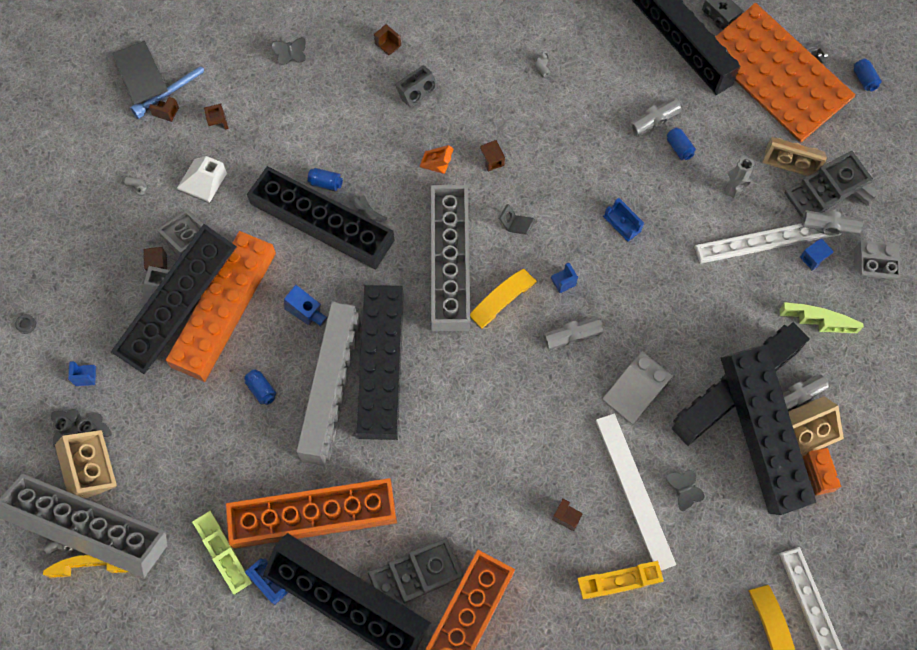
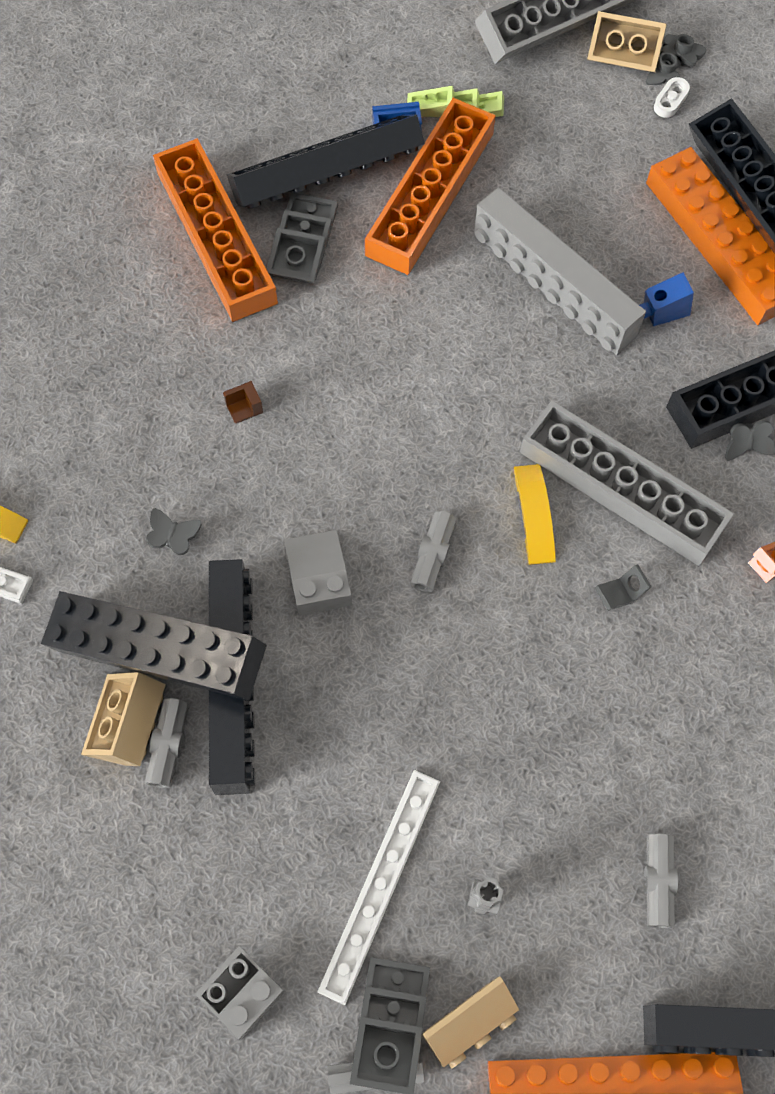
camera: 125 degrees right, 0 degrees up
(82, 375) = (730, 83): blue panel -> none
(118, 406) = (669, 100): none -> white plate
(260, 387) = (601, 219): blue head -> none
(380, 363) = (548, 339): black brick -> none
(493, 155) = (736, 626): reddish brown panel -> none
(565, 279) = (507, 591): blue panel -> none
(620, 580) = (144, 403): yellow slope -> none
(623, 220) = (536, 718): blue hinge -> none
(635, 491) = (215, 487): white tile -> none
(681, 144) = (596, 881): blue head -> none
(816, 254) = (313, 923): blue panel -> none
(821, 471) = (67, 687): orange brick -> none
(826, 319) = (221, 858): yellowish green slope -> none
(832, 223) = (336, 979): light grey piece -> none

